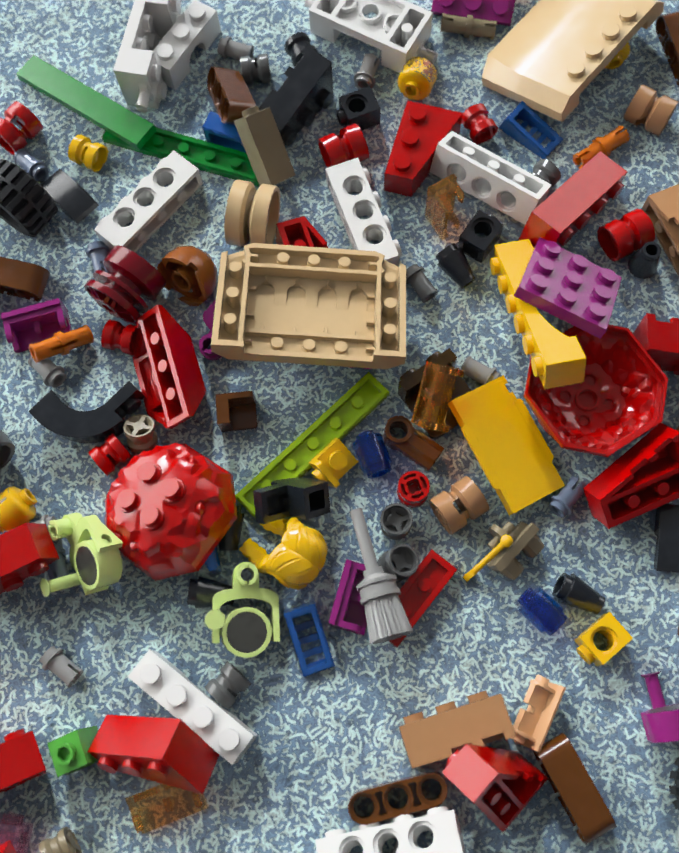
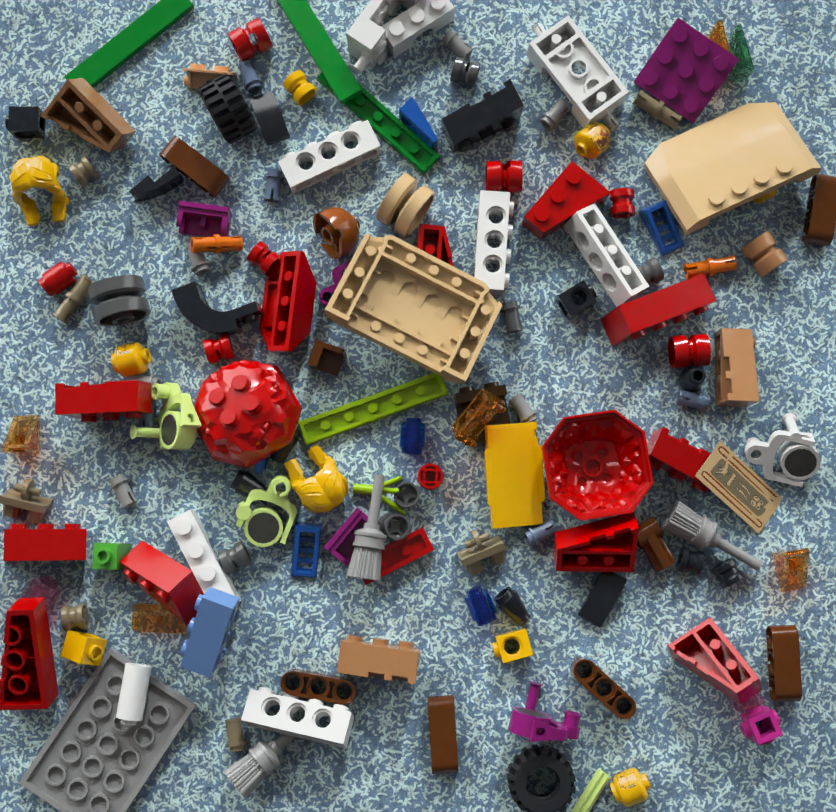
camera: 15 degrees right, 10 degrees up
(128, 280) = (283, 220): dark red wheel -> none
(140, 433) = (245, 337): dark tan wheel -> none
(228, 93) = (433, 92): reddish brown beam -> none
(233, 788) = (209, 631): none -> medium blue wedge
(264, 146) = (439, 151): dark tan brick -> none
(292, 497) = (339, 443): black brick -> none
(295, 44) = (510, 69): black wheel -> none
(332, 463) = (379, 430): yellow bracket -> none
(350, 536) = (367, 490): none -> lime plant
(362, 102) = (538, 140): black brick -> none
(414, 445) = (447, 444): reddish brown piece -> none
(441, 204) = (556, 263): clear orange hinge -> none
(455, 265) = (546, 315): black cone -> none
(468, 499) = (466, 502): medium nougat wheel -> none
(494, 781) = (388, 706): red wedge -> none
(505, 541) = (477, 547): yellow hinge -> none
(534, 723) = (434, 681): light nougat hinge -> none
(554, 355) = (575, 432): yellow arch -> none
(569, 287) = (616, 379): magenta plate -> none
(658, 283) = (695, 400): none -> sand blue pin

